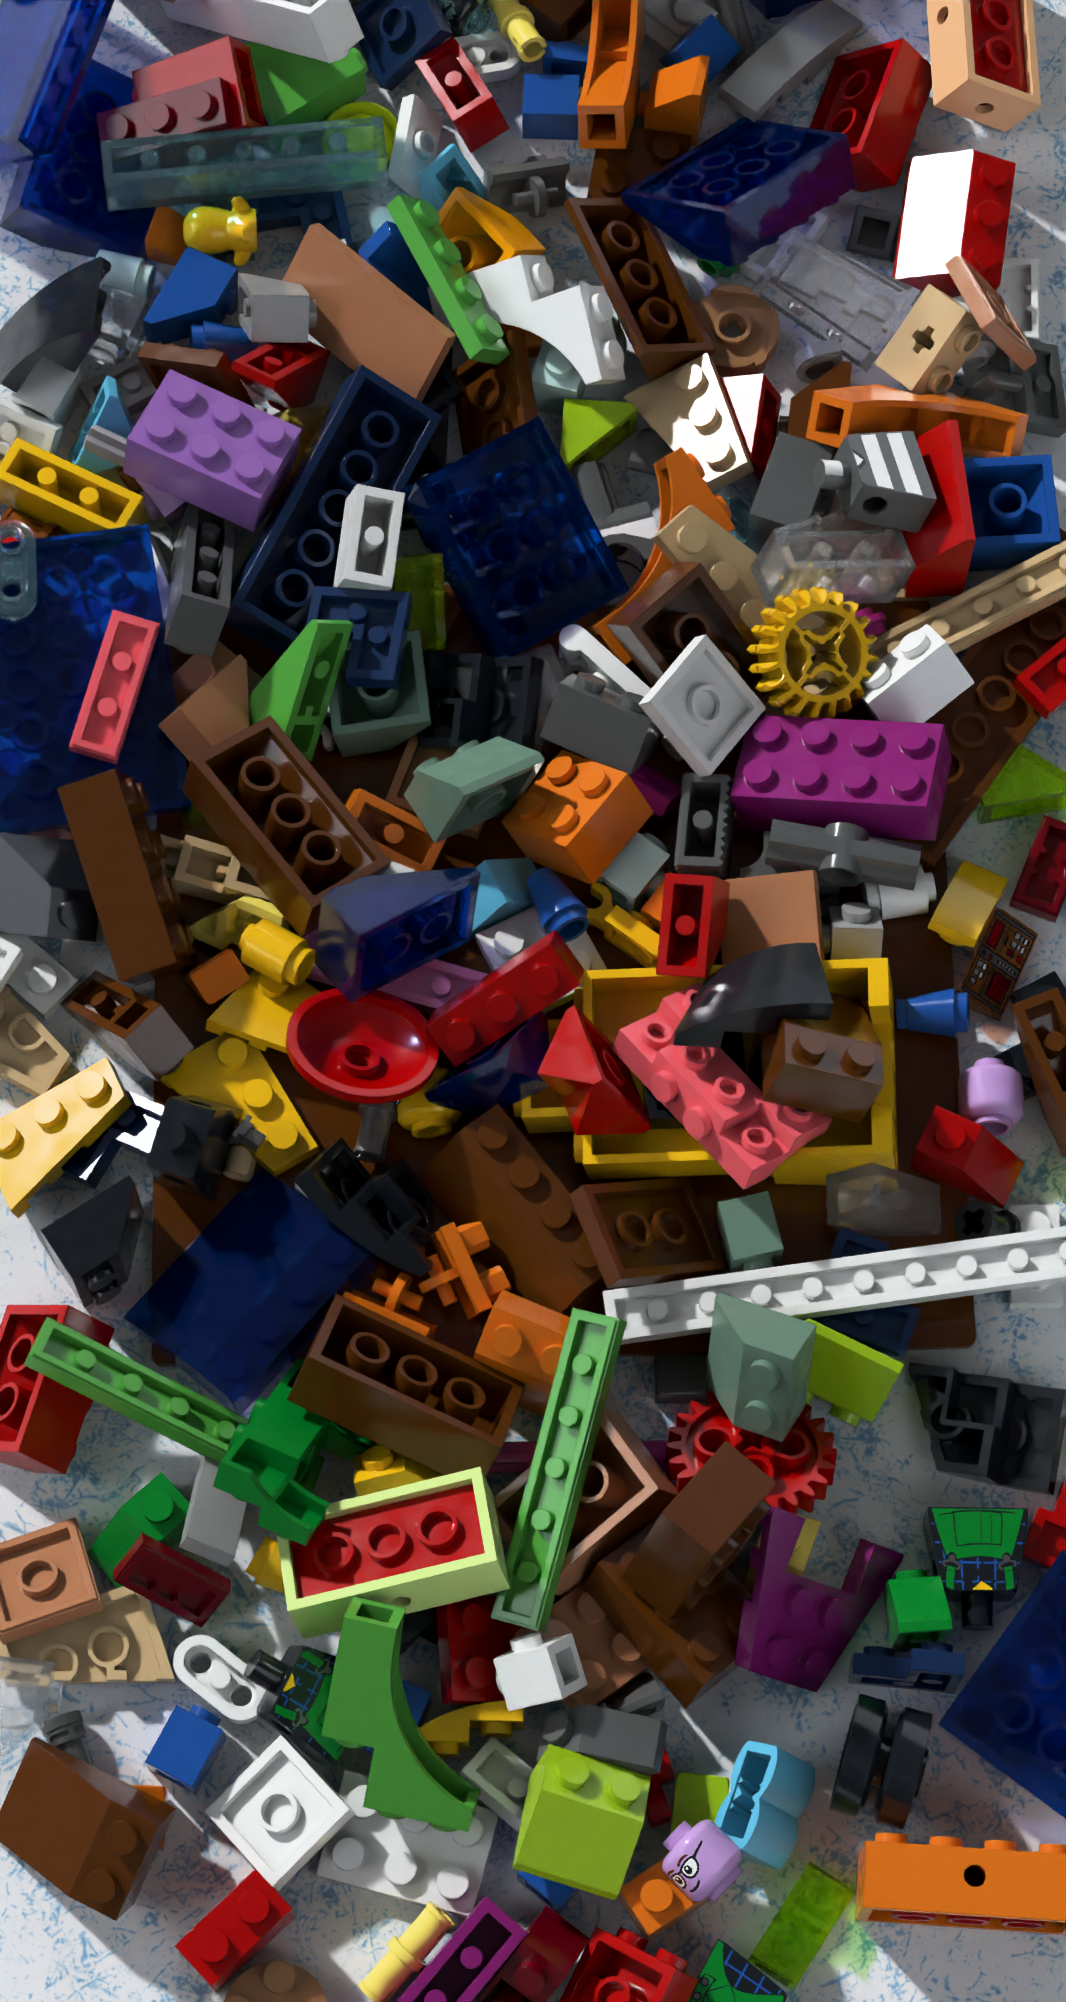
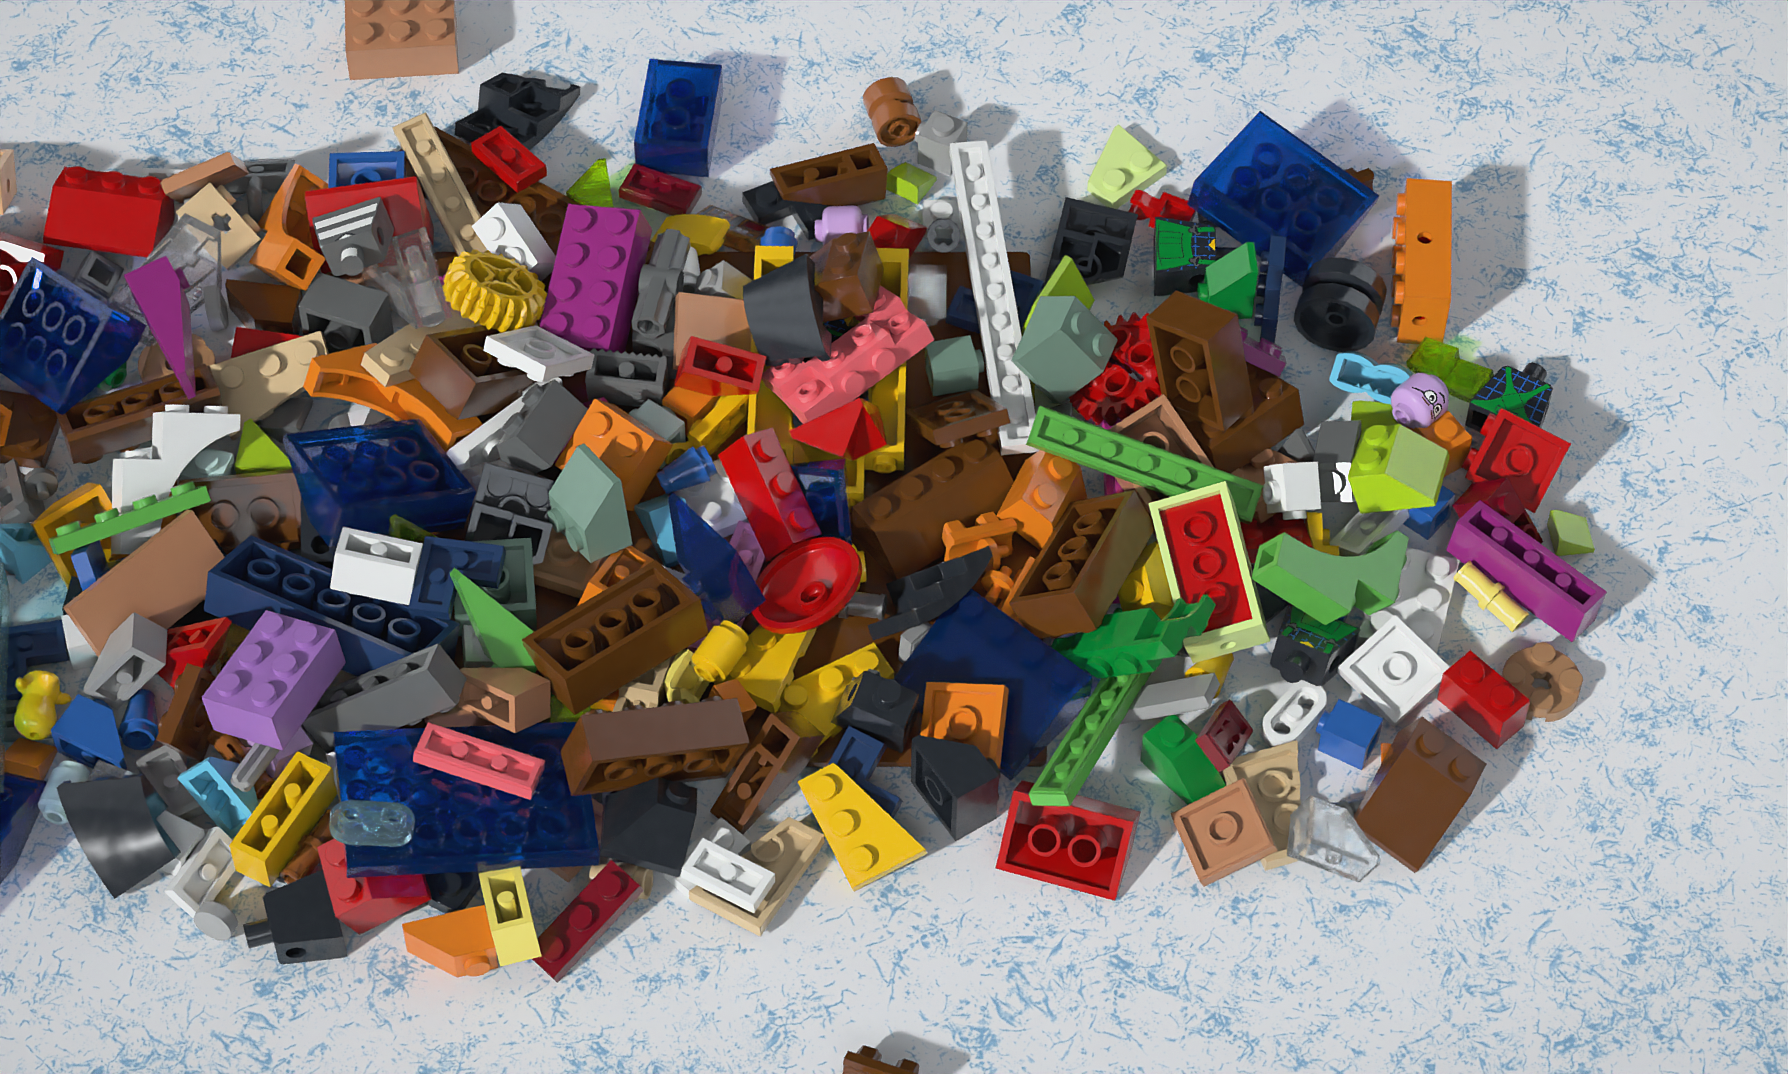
camera: 90 degrees left, 15 degrees down
(179, 1249) = (967, 715): none -> orange plate
(740, 282) = (164, 305): none -> magenta slope

